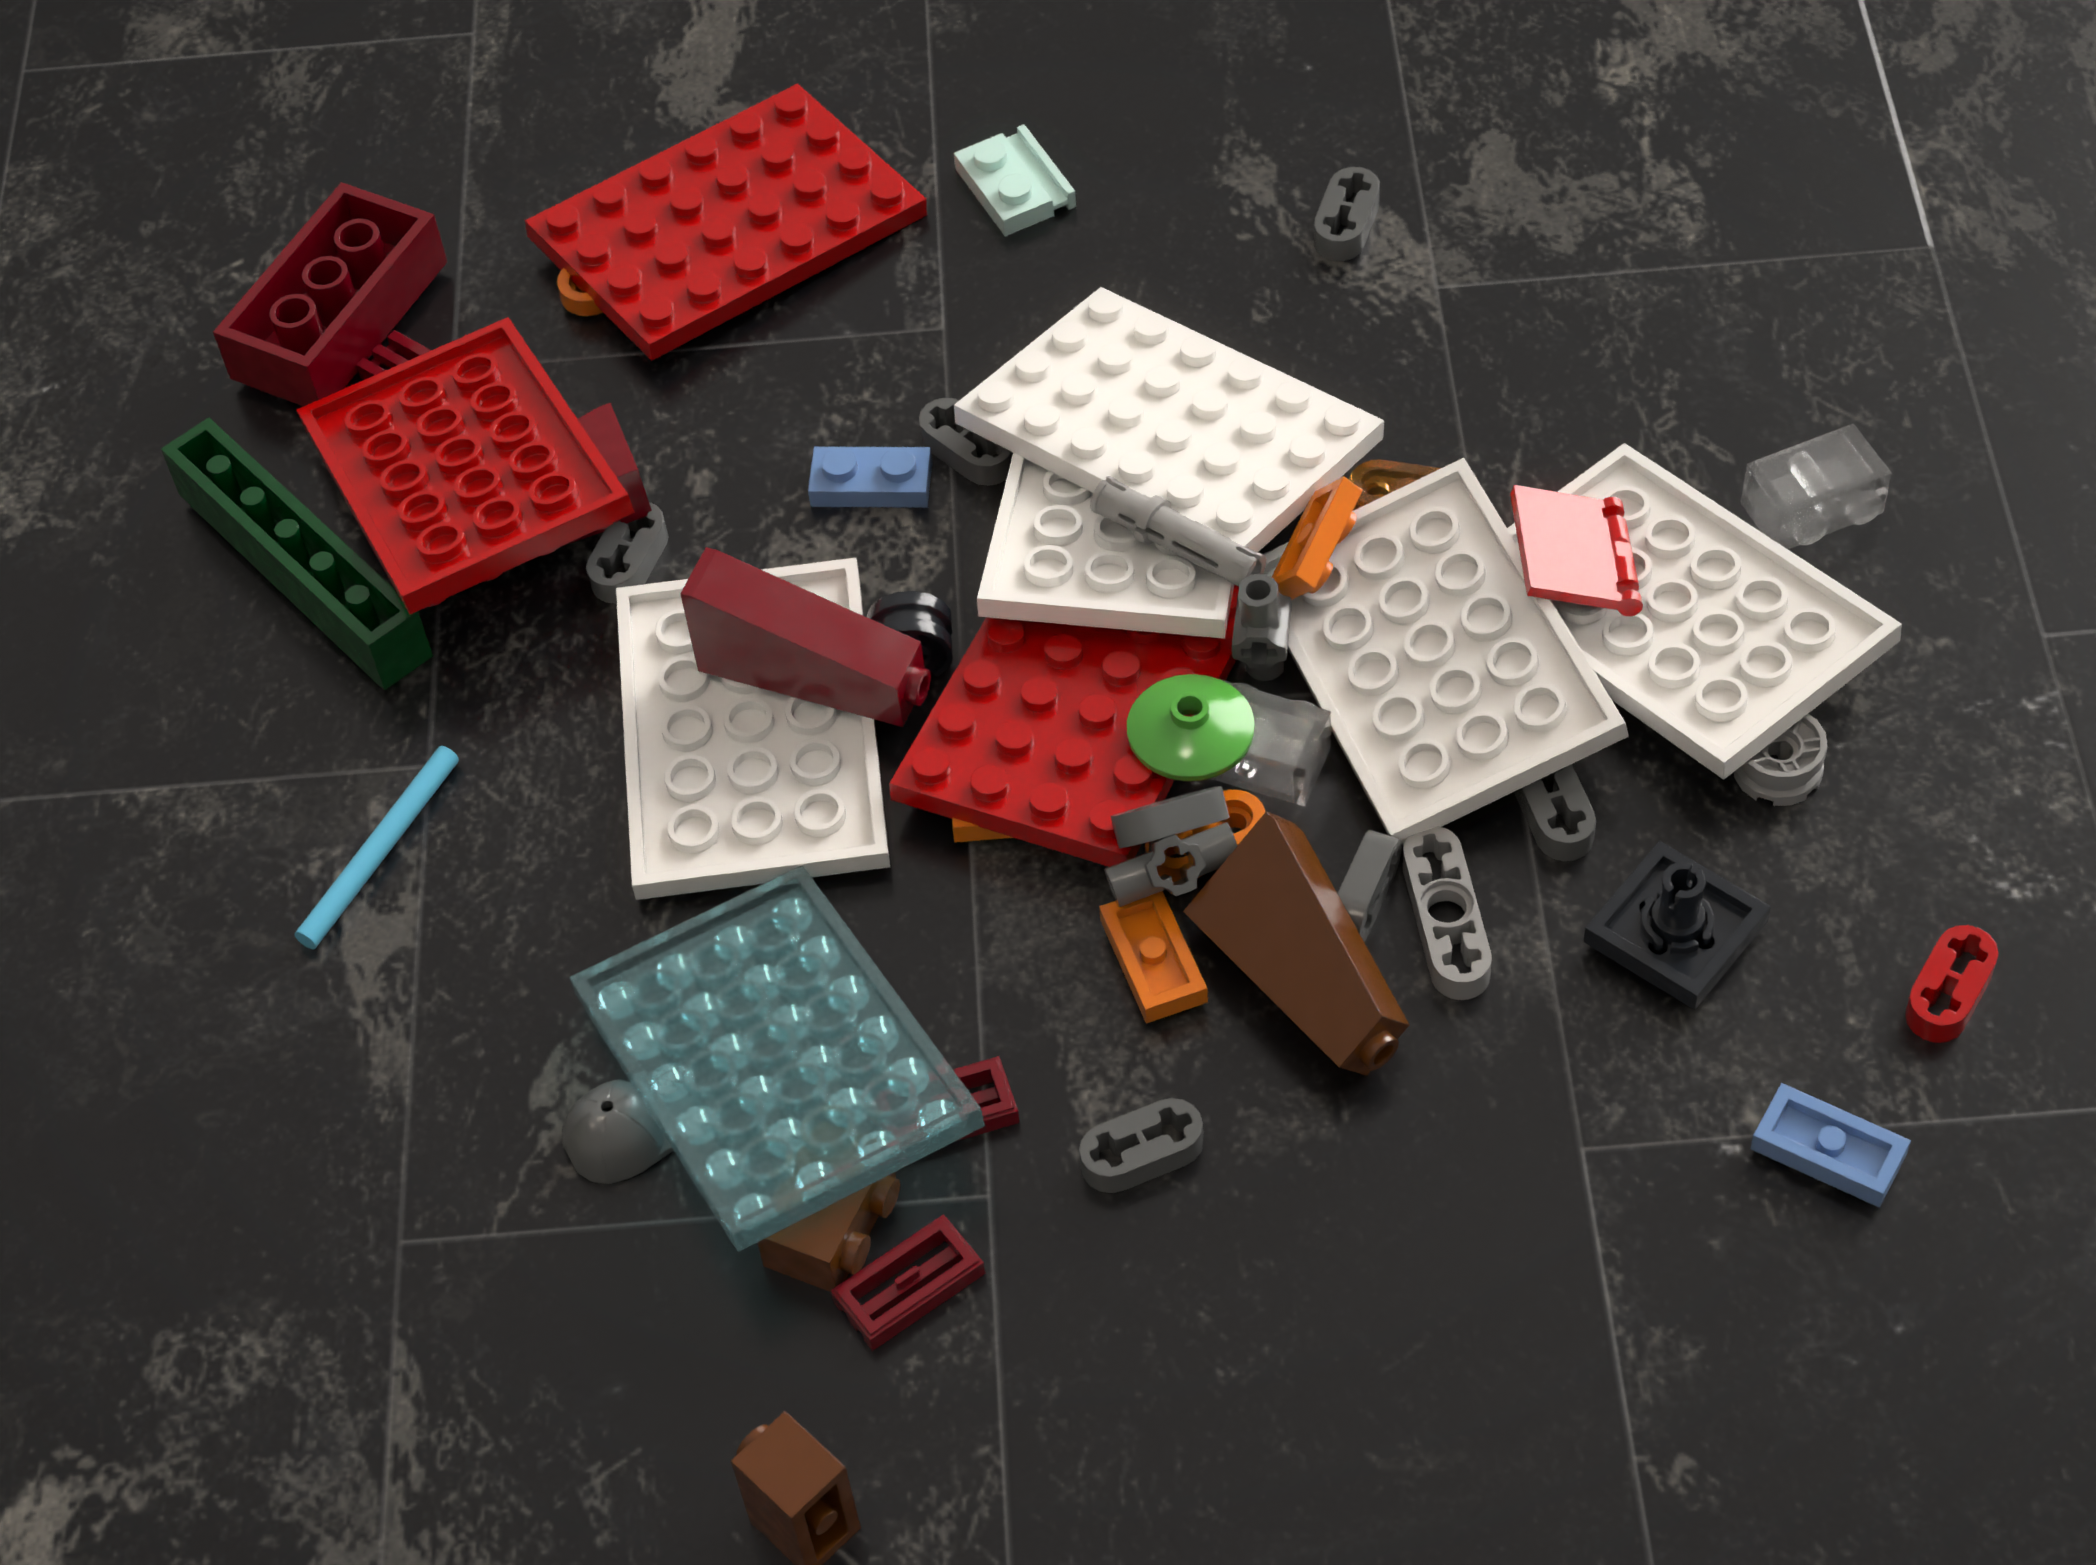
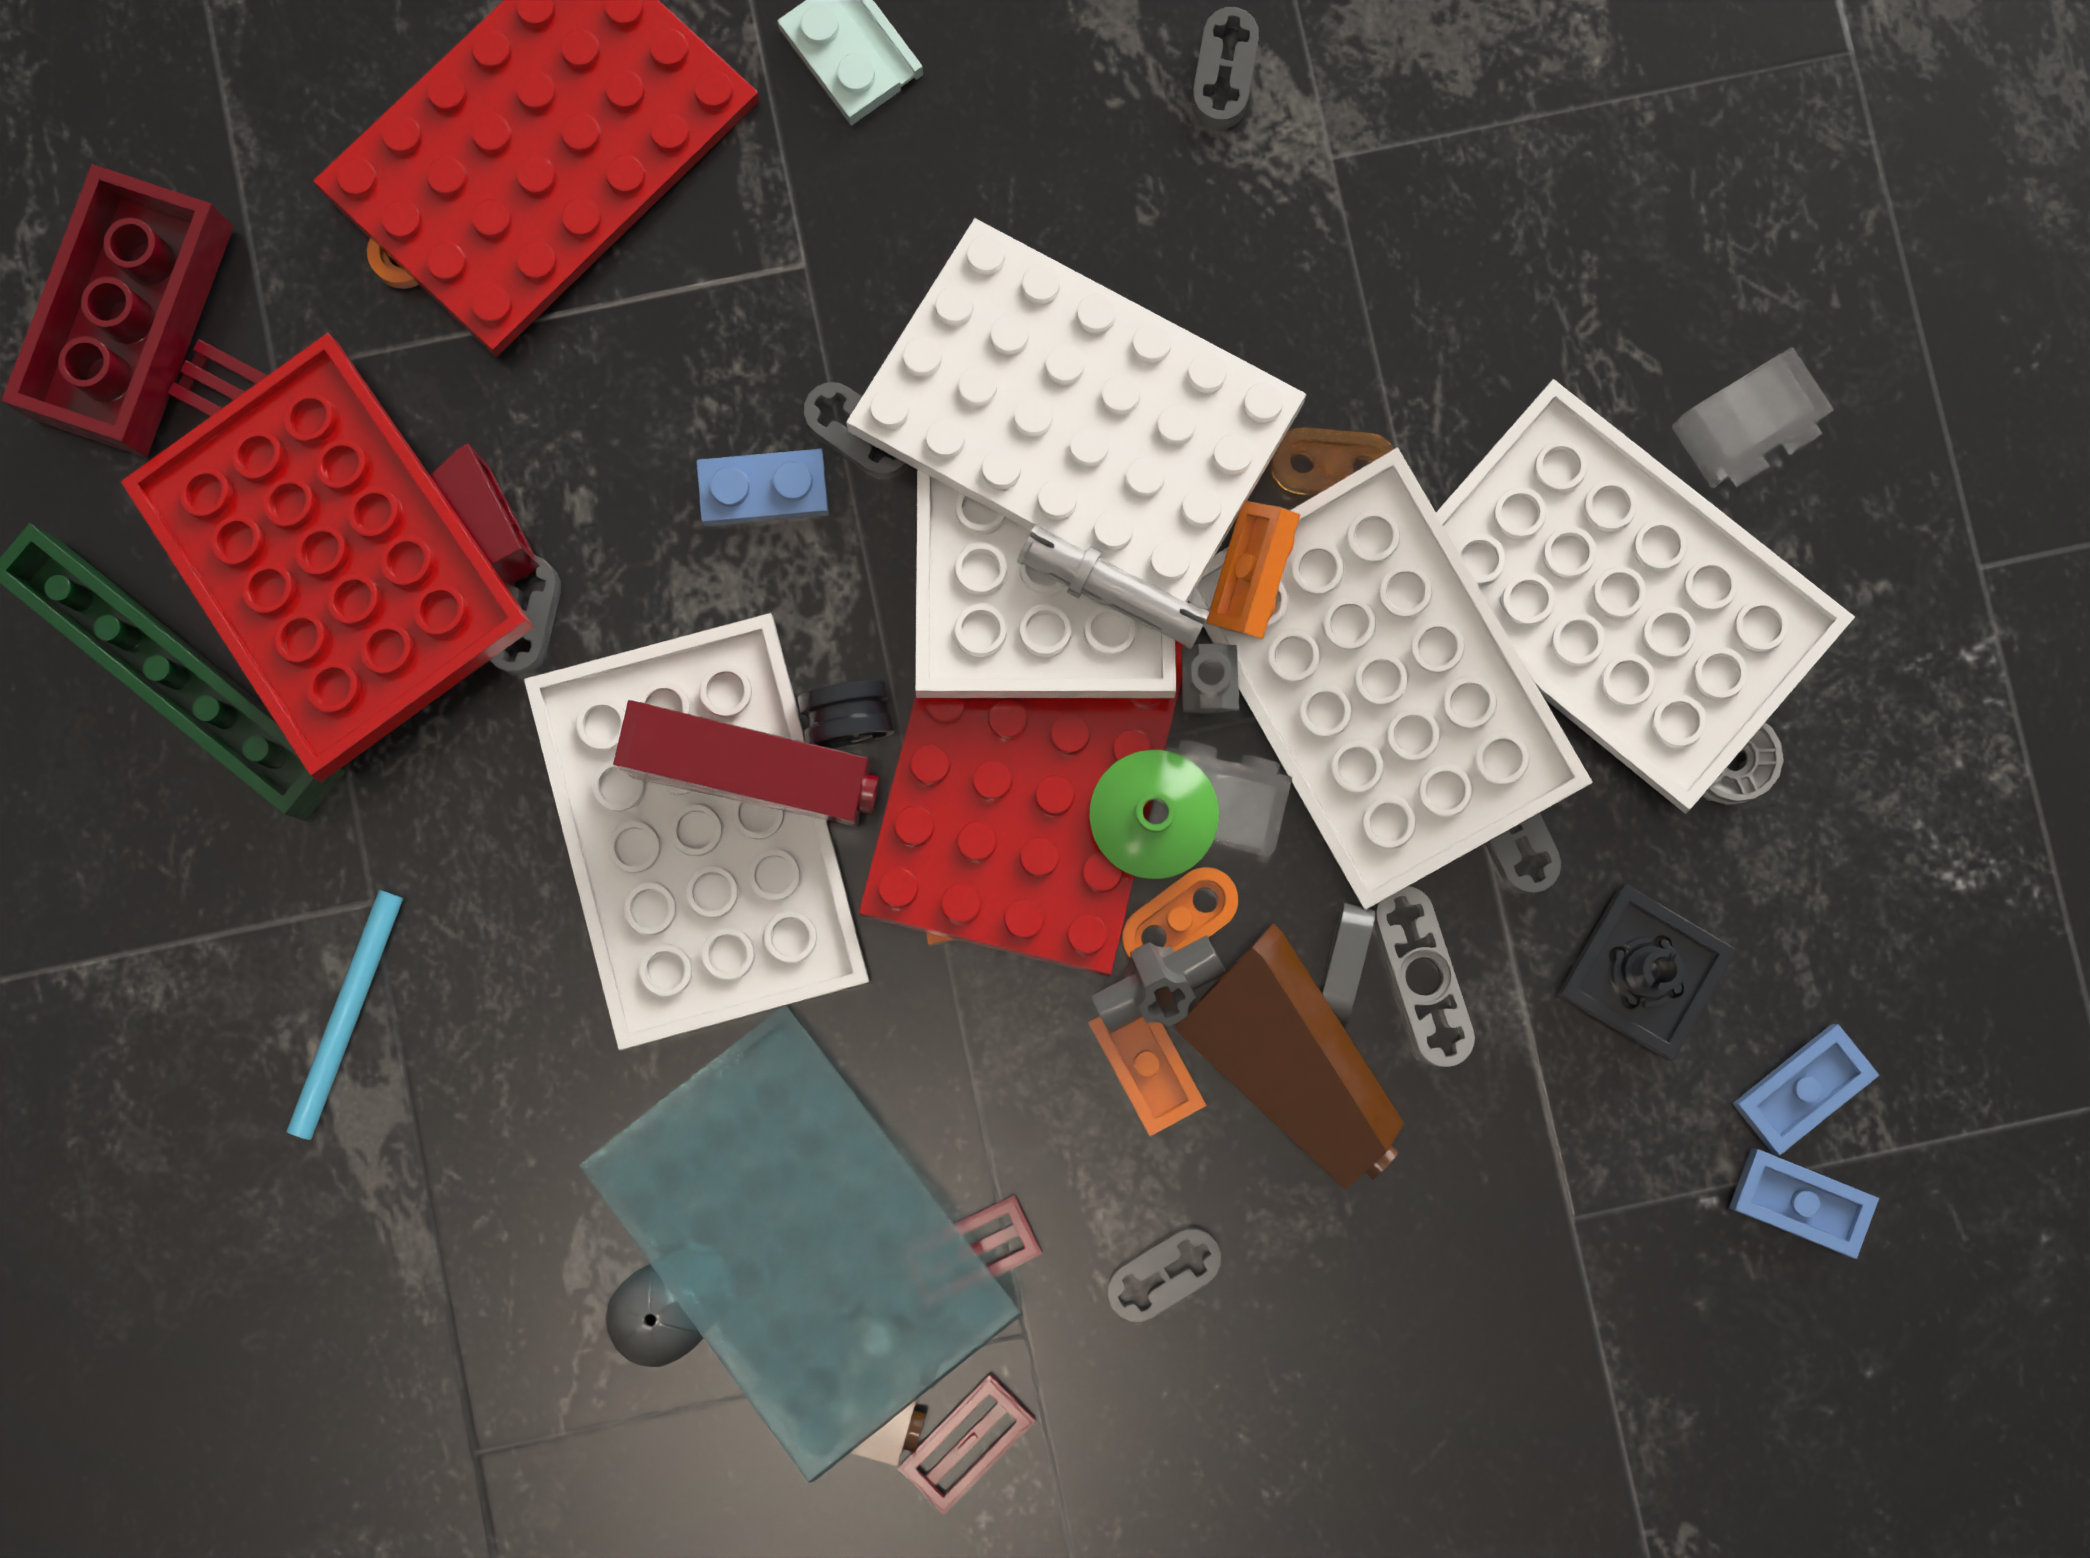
camera: 15 degrees left, 30 degrees up
(1170, 817) = (1150, 935): dark grey beam -> none
(1576, 549) = (1520, 553): piece -> none
(1838, 1041) = (1805, 1089): none -> medium blue plate
(1964, 989) = (1921, 1010): red beam -> none

